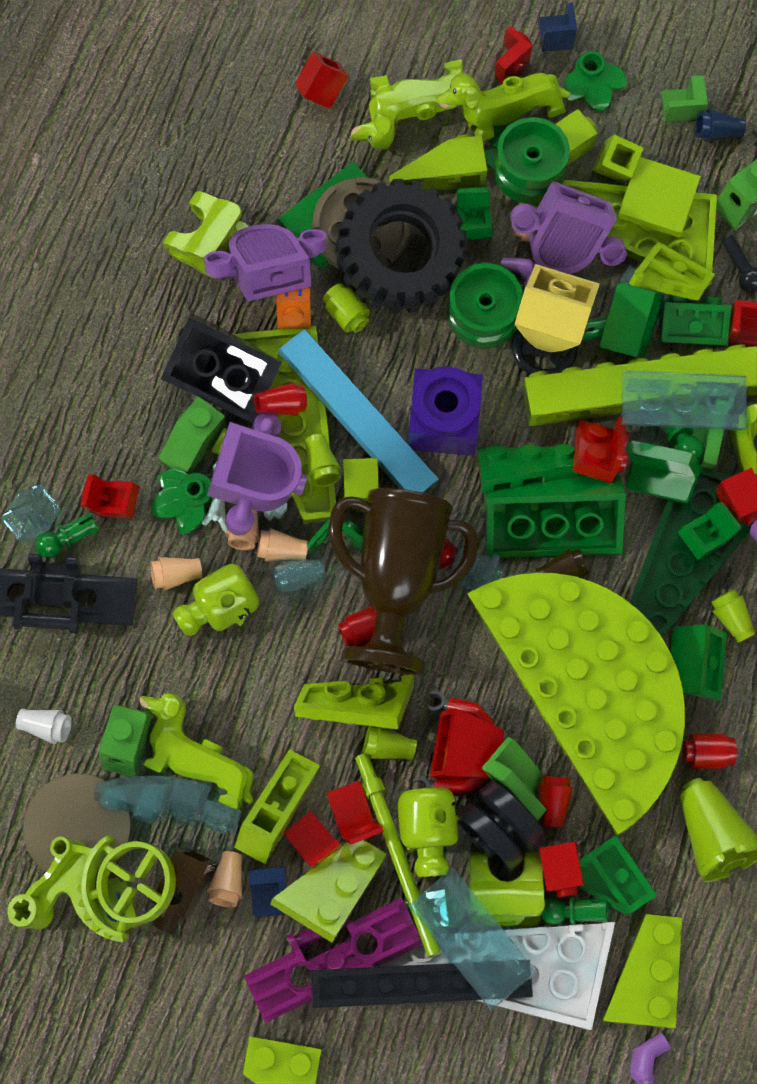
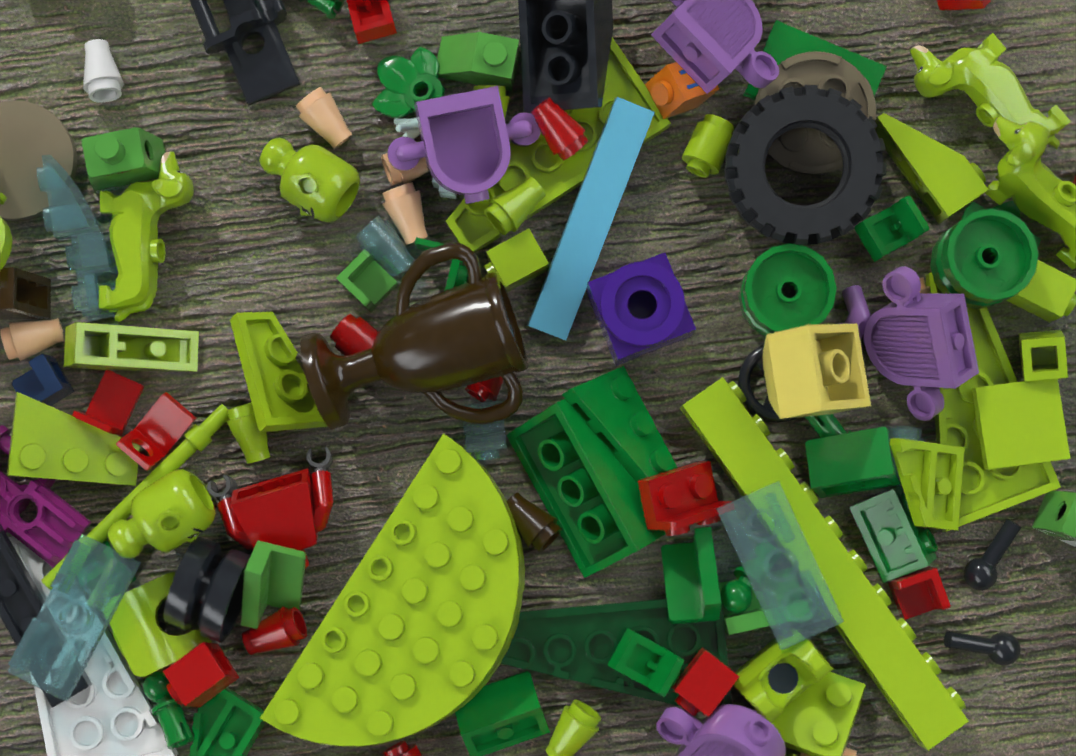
camera: 70 degrees right, 10 degrees up
(319, 601) = (367, 281): none -> bright green panel

